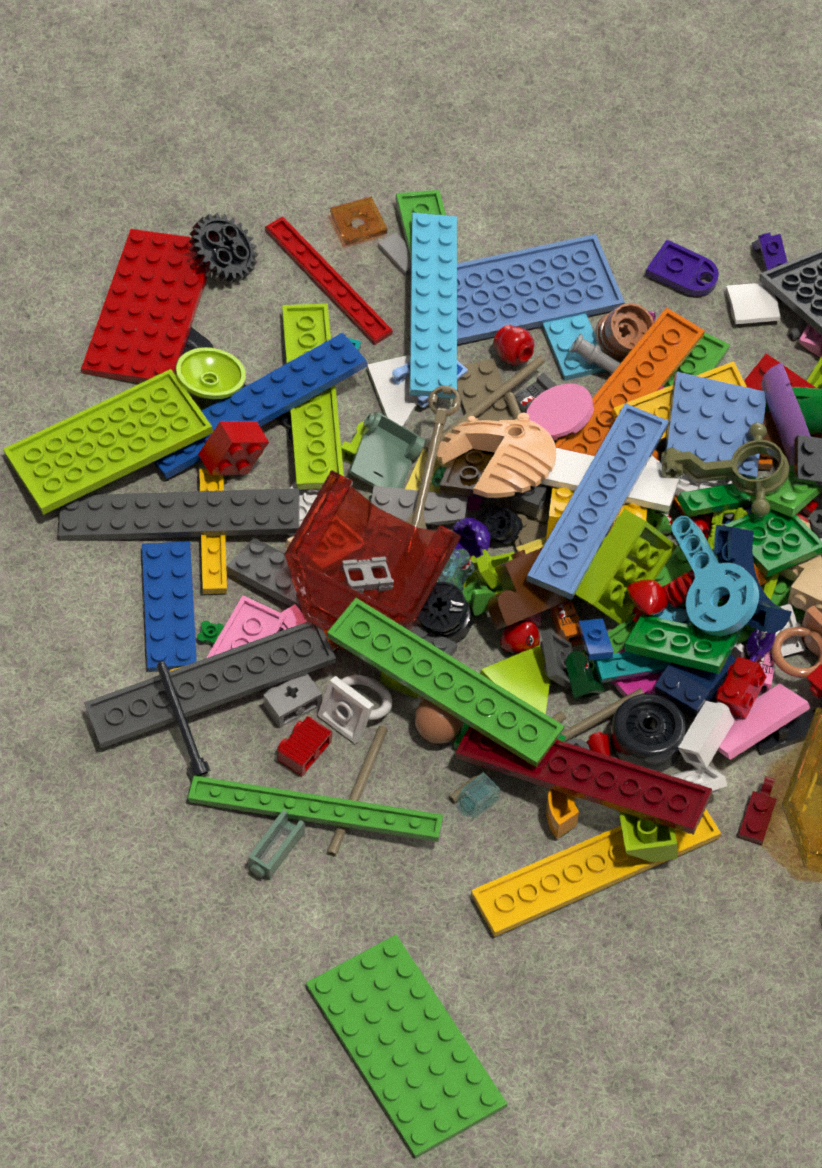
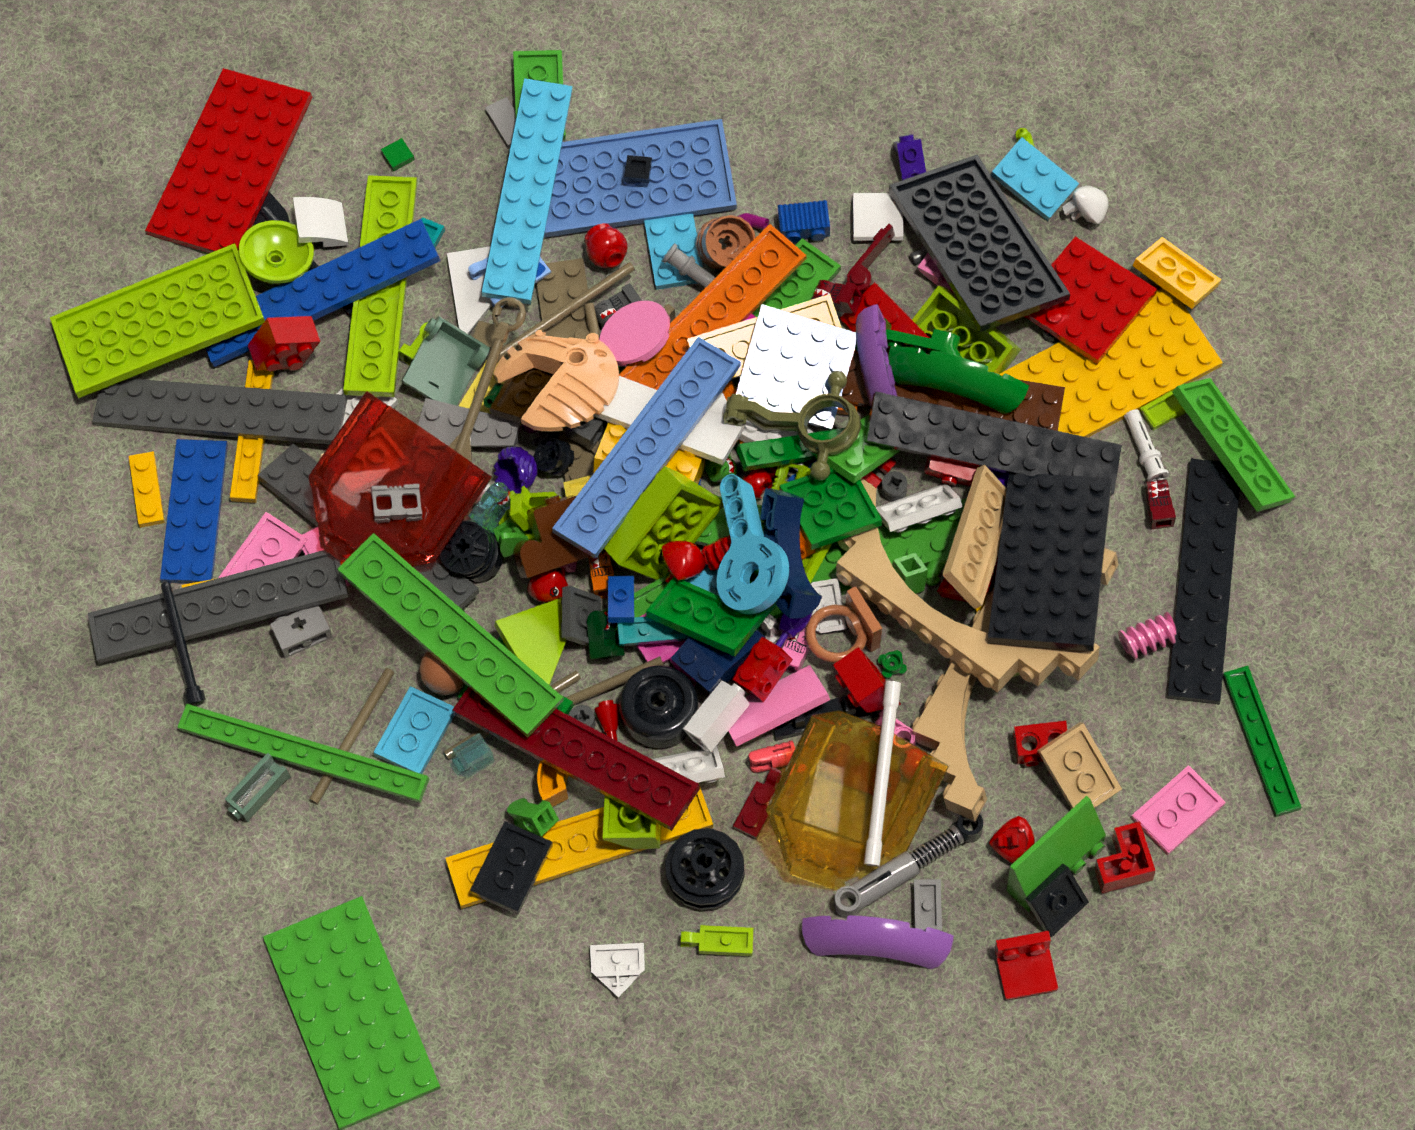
camera: 15 degrees right, 10 degrees up
(120, 591) = (146, 489): none -> yellow plate
(204, 635) = (229, 540): green plate -> none
(223, 248) = (296, 108): black gear -> none
(244, 346) = (320, 221): none -> white slope
(304, 745) = (304, 682): red brick -> none
(305, 287) = (397, 154): none -> green tile
(329, 280) = (424, 148): red tile -> none
(348, 709) = (353, 650): white tile -> none
(360, 209) = (471, 65): clear orange piece -> none
(419, 427) = (485, 333): none -> dark tan tile
(419, 777) = (415, 731): none -> medium azure plate
(531, 278) = (638, 169): none -> black plate
(539, 890) = (511, 867): none -> black plate
(549, 842) = (533, 817): none -> bright green leg
(655, 971) = (617, 964): none -> white slope
(683, 269) = (808, 169): dark purple plate -> none
(692, 307) = (804, 221): none -> blue brick
(724, 859) = (699, 847): none -> black wheel
(746, 364) = (840, 295): none -> dark red leg
(749, 938) = (720, 940): none -> lime plate
(751, 349) = (859, 272): none -> dark red door
(767, 766) = (771, 756): none -> coral hinge

